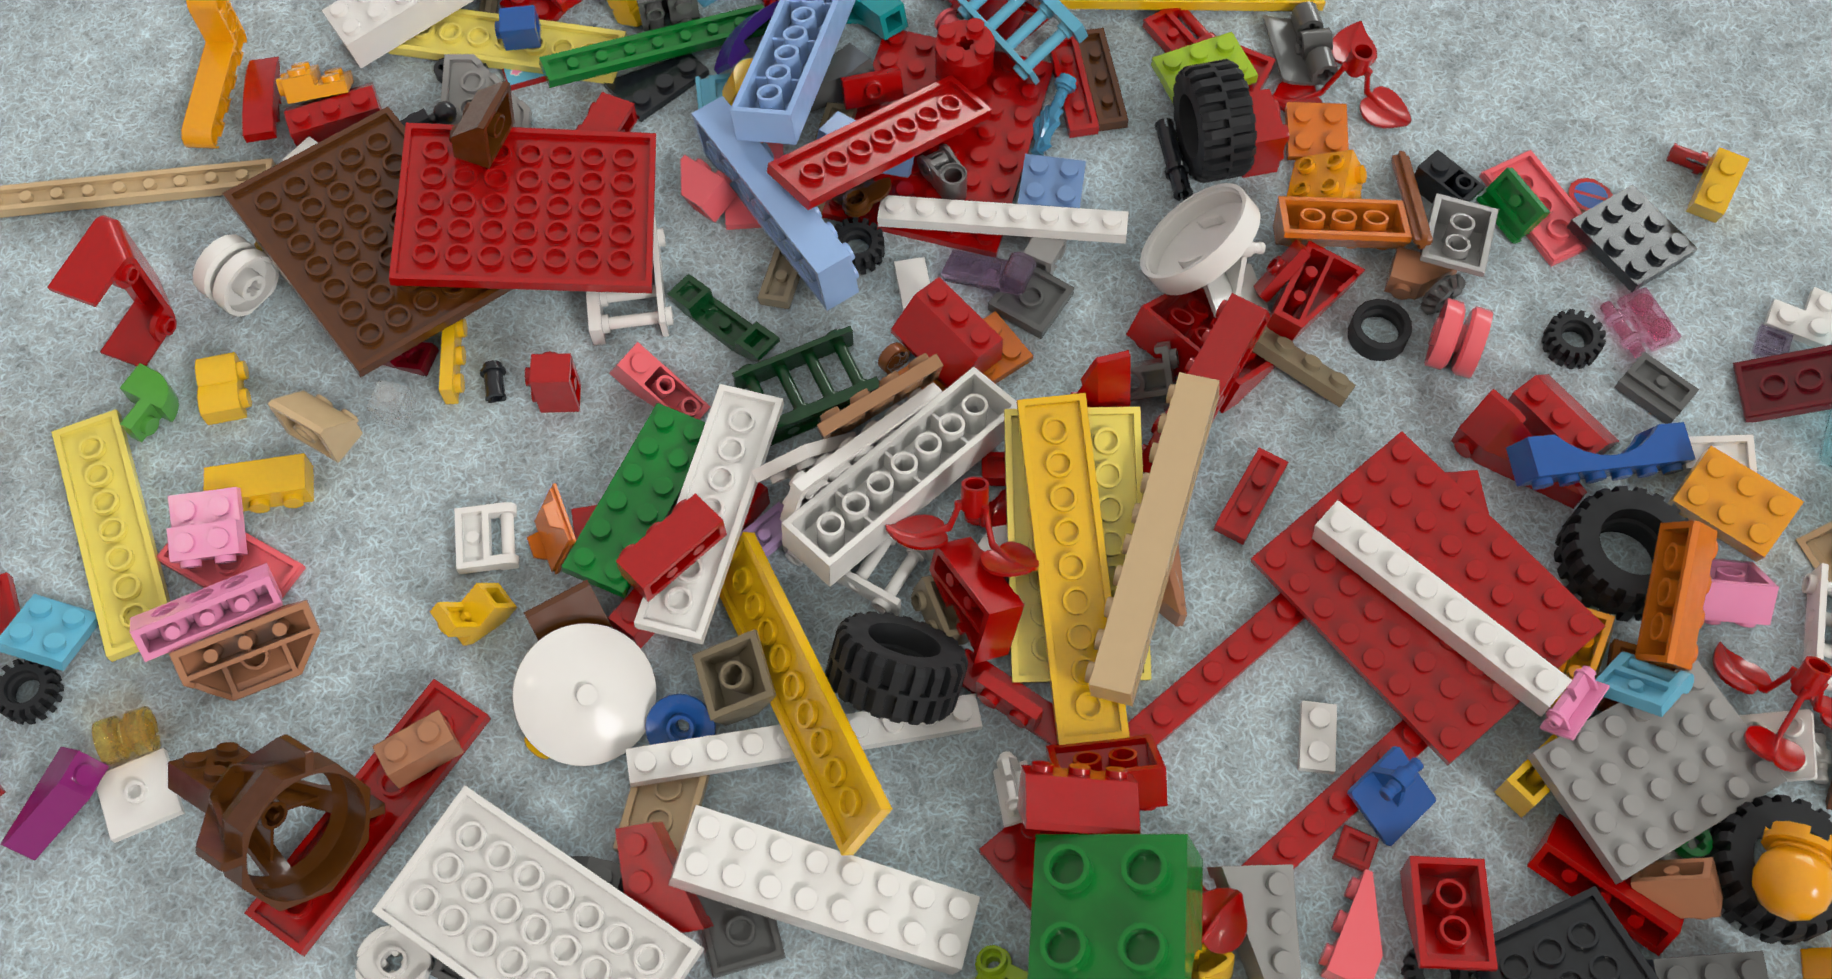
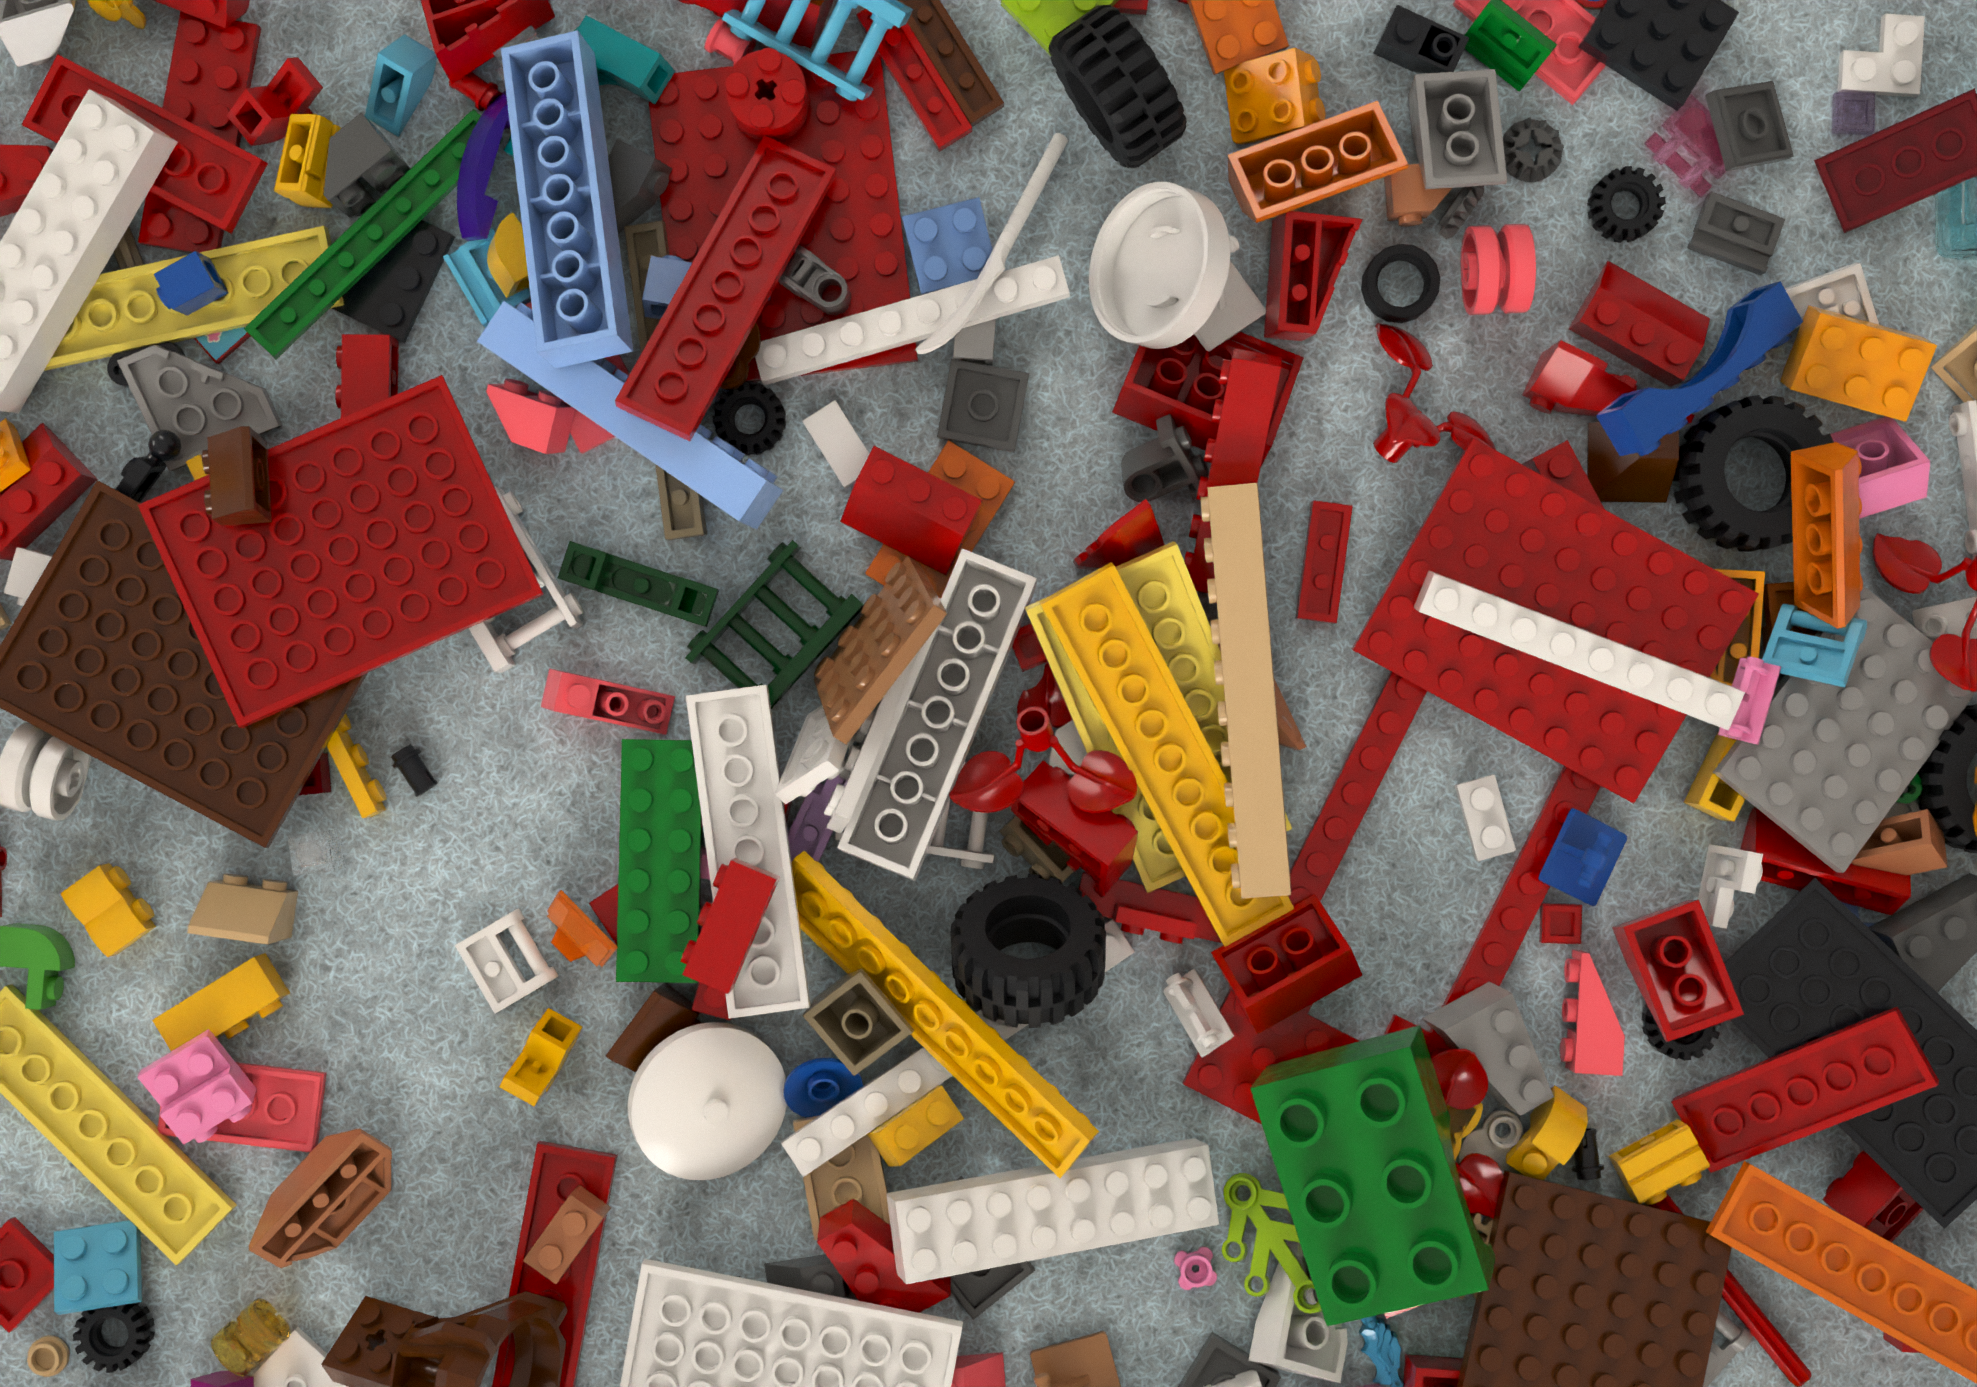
camera: 25 degrees left, 25 degrees up
(205, 612) = (258, 1185): bright pink brick -> none
(554, 382) = (488, 754): red brick -> none
(740, 783) = (915, 1127): none -> yellow brick
(872, 88) = (674, 193): red plate -> none
(893, 357) = (856, 552): dark orange tile -> none
(990, 272) = (922, 395): clear purple plate -> none
(1049, 117) = (906, 145): dark azure piece -> none
(1078, 799) = (1280, 1033): red slope -> none
(1092, 192) = (996, 262): none -> white piece
(1176, 169) = (1086, 148): black pin -> none
(1271, 134) = (1186, 67): red brick -> none
(1281, 270) = (1266, 262): red plate -> none
(1304, 367) = (1325, 370): dark tan plate -> none
(1346, 424) = (1405, 422): none -> red plant
(1412, 200) = (1386, 92): dark orange axle -> none
(1497, 283) = (1520, 163): none -> dark grey gear
(1516, 853) = (1723, 873): none -> white plate
(1530, 514) = (1630, 476): none -> reddish brown slope
(1686, 319) = (1749, 125): none -> dark grey tile

